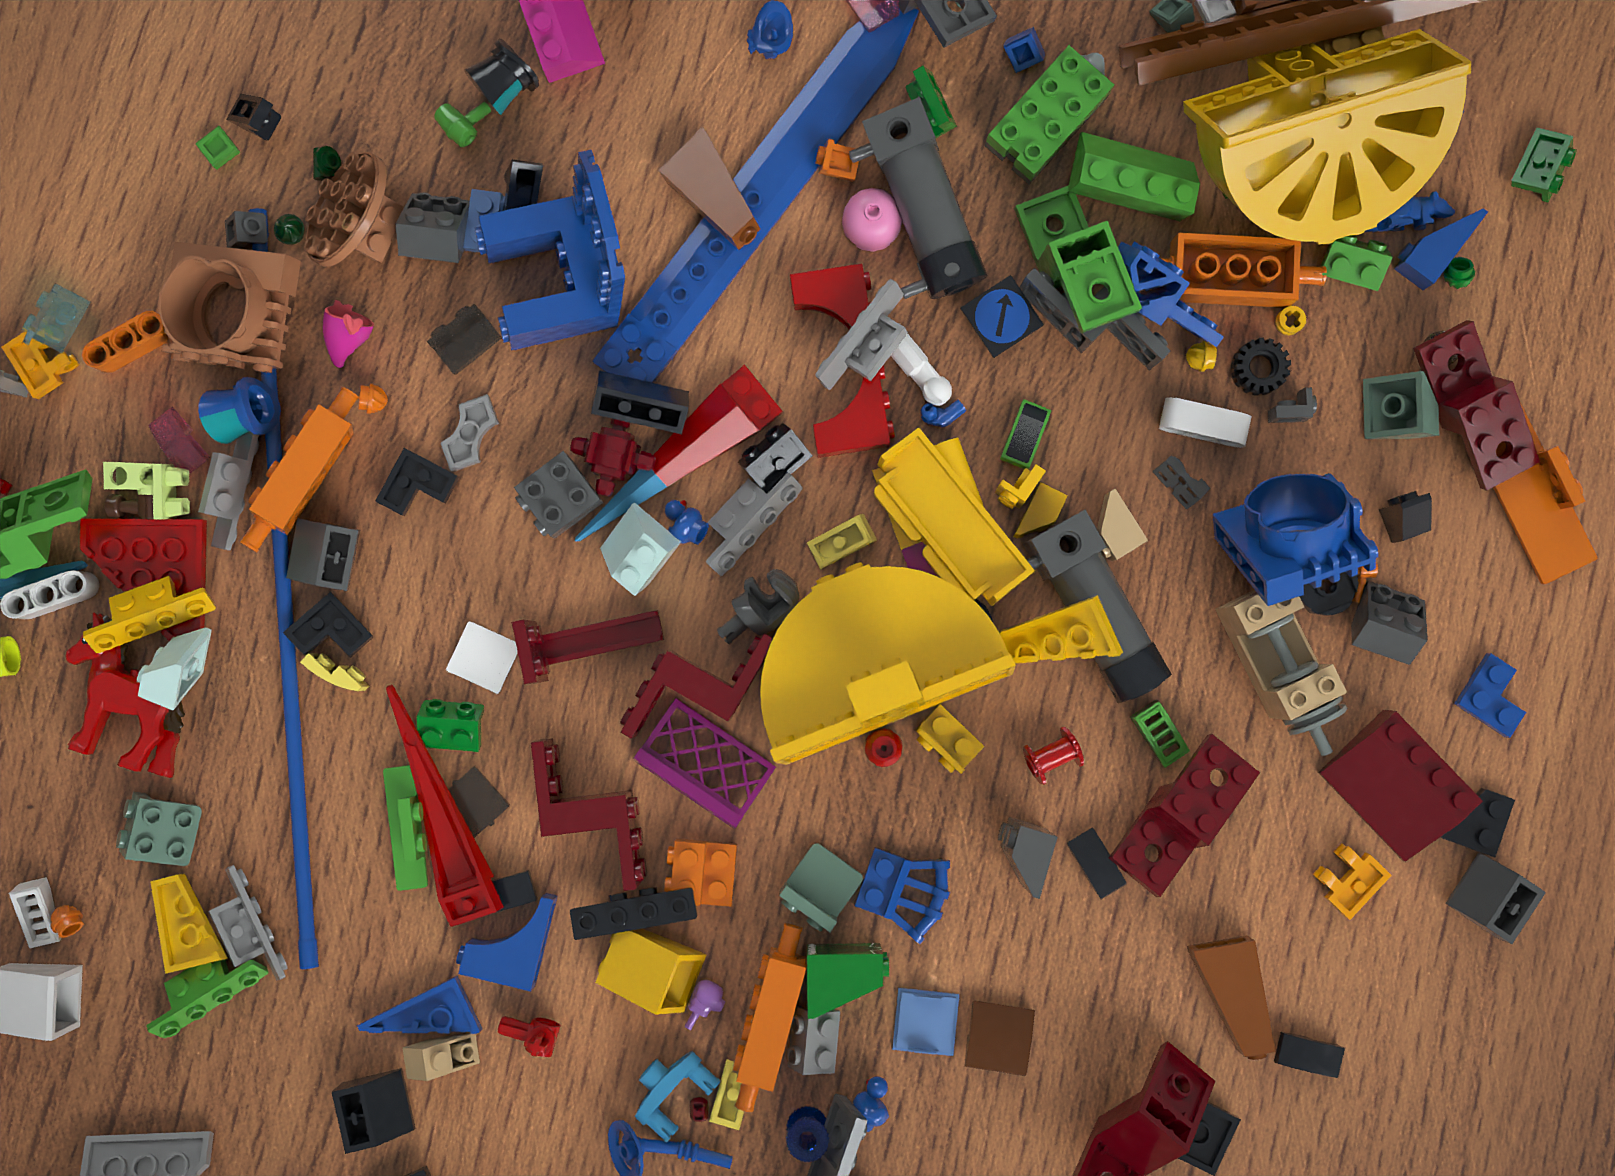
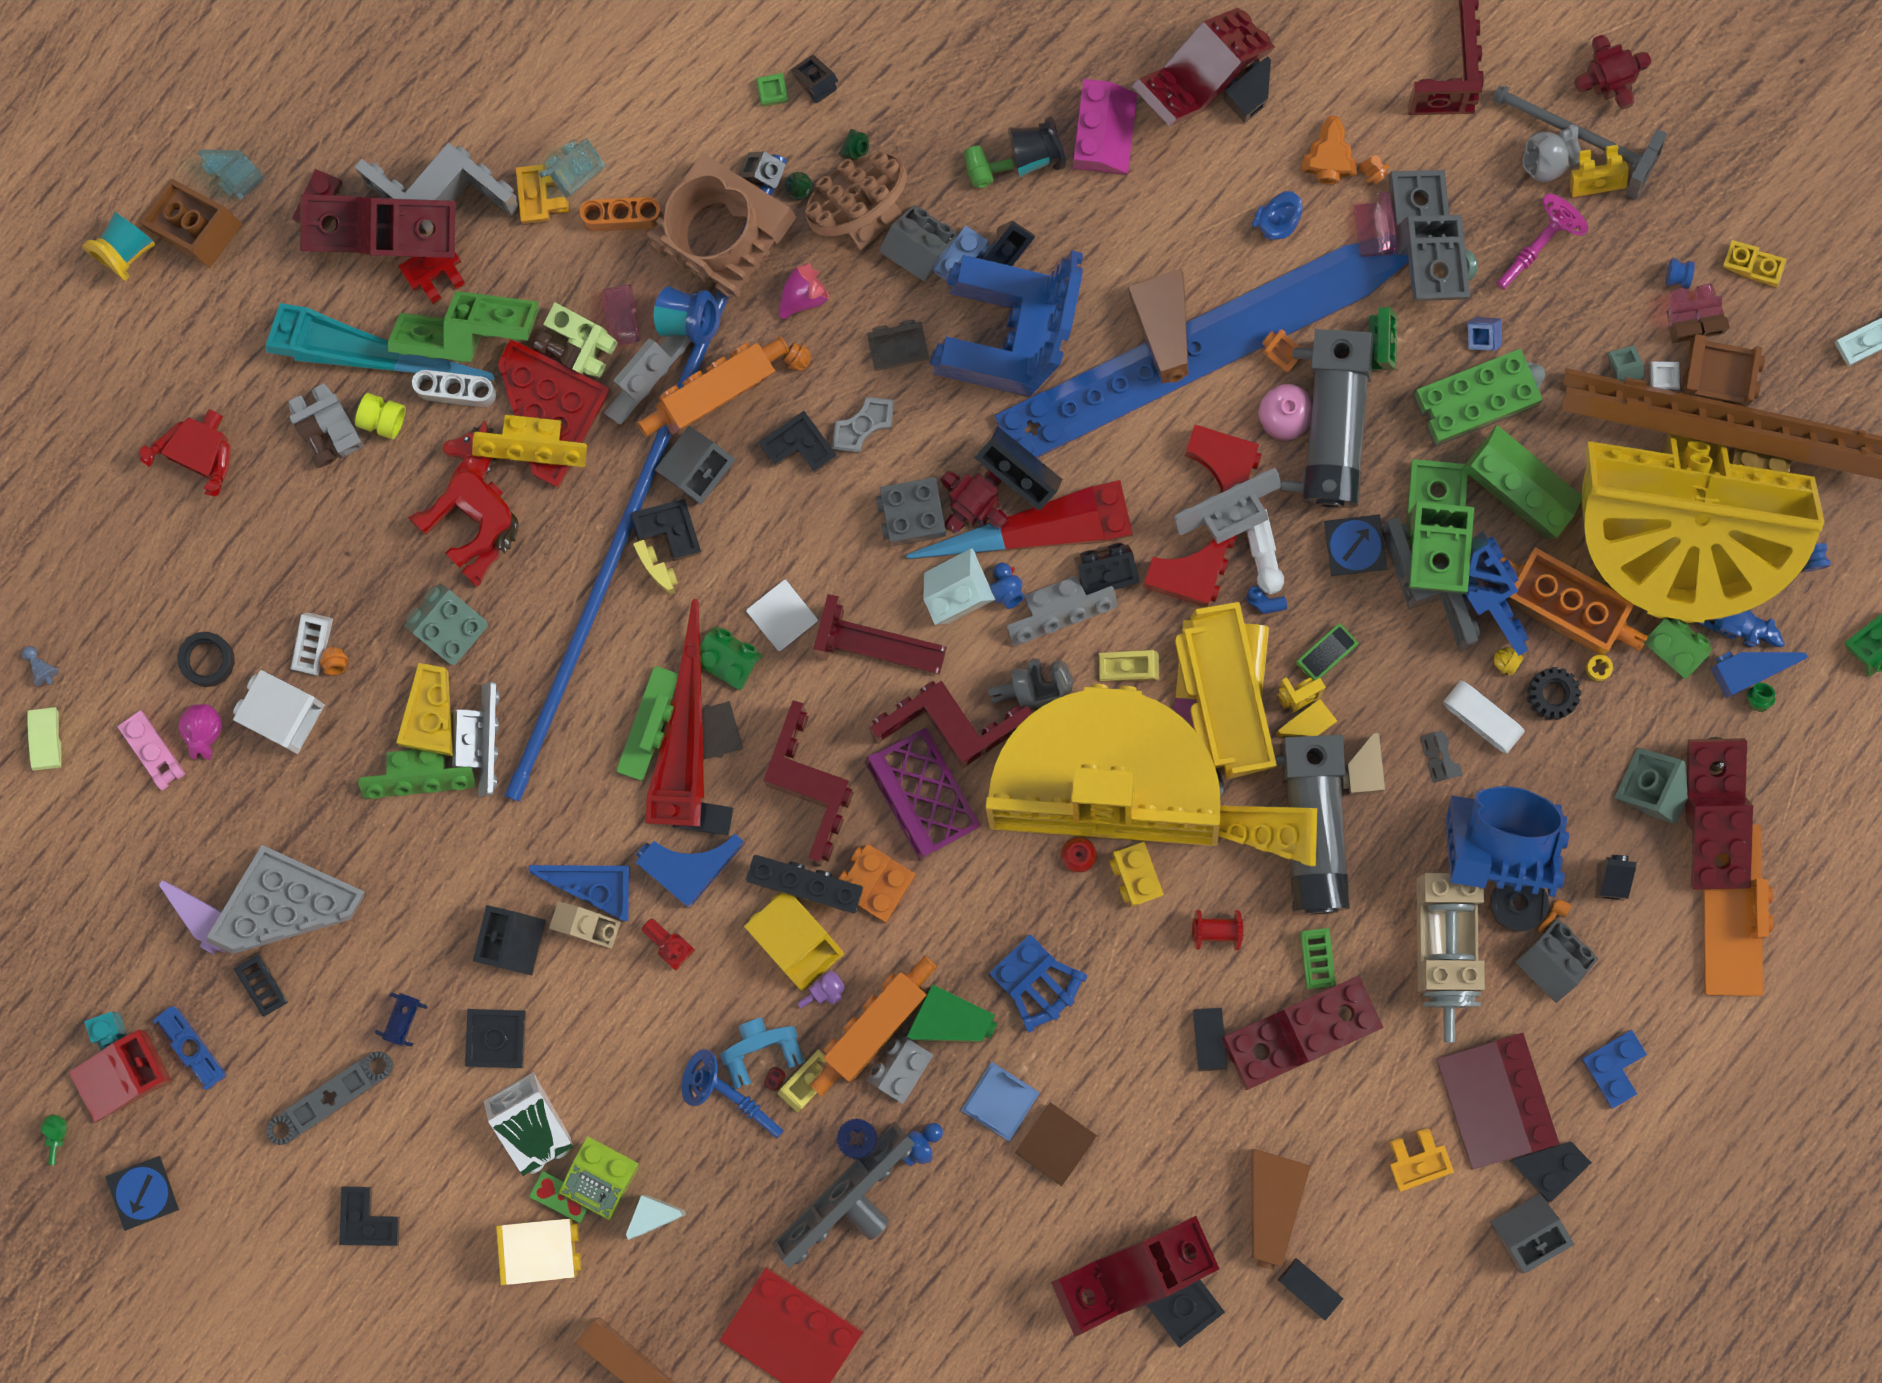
camera: 30 degrees right, 5 degrees down
(174, 669) = (530, 497): light aqua slope -> none
(820, 887) = (969, 942): sand green bracket -> none
(1028, 852) = (1155, 992): dark grey slope -> none
(1288, 411) = (1559, 743): dark grey bracket -> none

